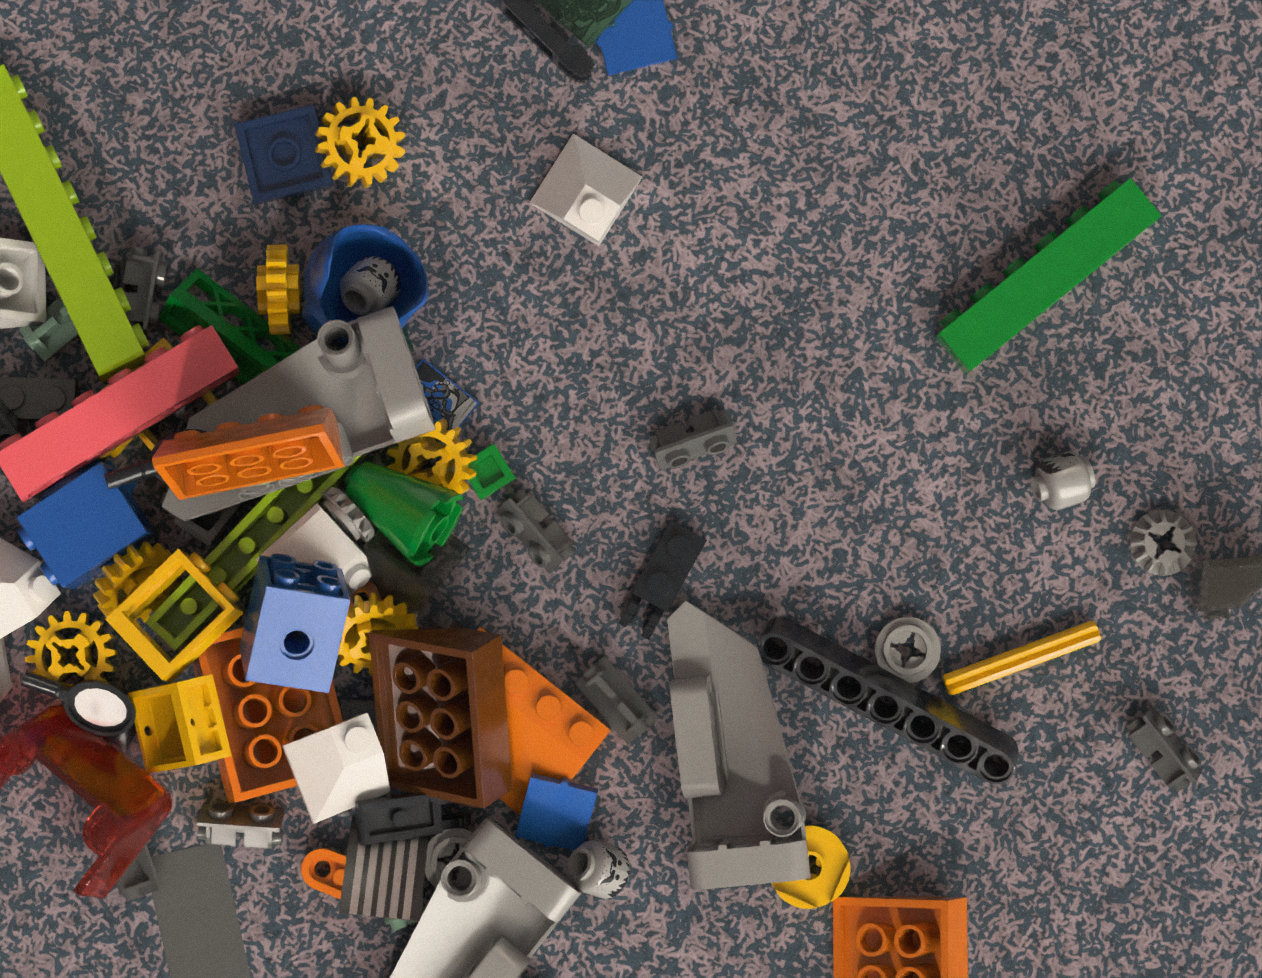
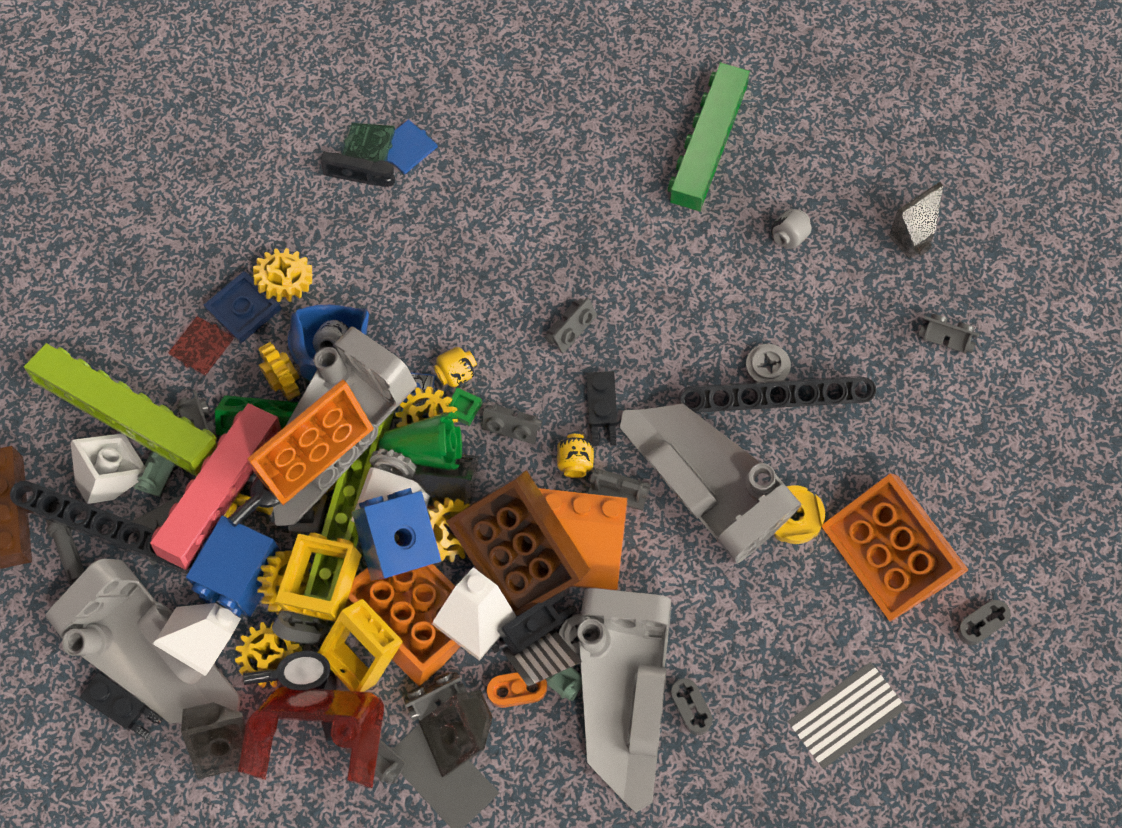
camera: 25 degrees left, 20 degrees down
(121, 657) = (300, 628): none -> dark grey beam
(203, 175) = (201, 345): none -> clear red piece
(242, 888) = (457, 730): none -> clear smoke slope
(508, 412) = (455, 367): none -> yellow head
(556, 812) = (625, 568): blue piece -> none
(585, 190) = (427, 235): white slope -> none
(586, 626) = (575, 456): none -> yellow head
(599, 869) = (674, 584): light grey head -> none
(1021, 657) = (834, 333): yellow axle -> none
(1144, 548) = (860, 239): light grey gear -> none

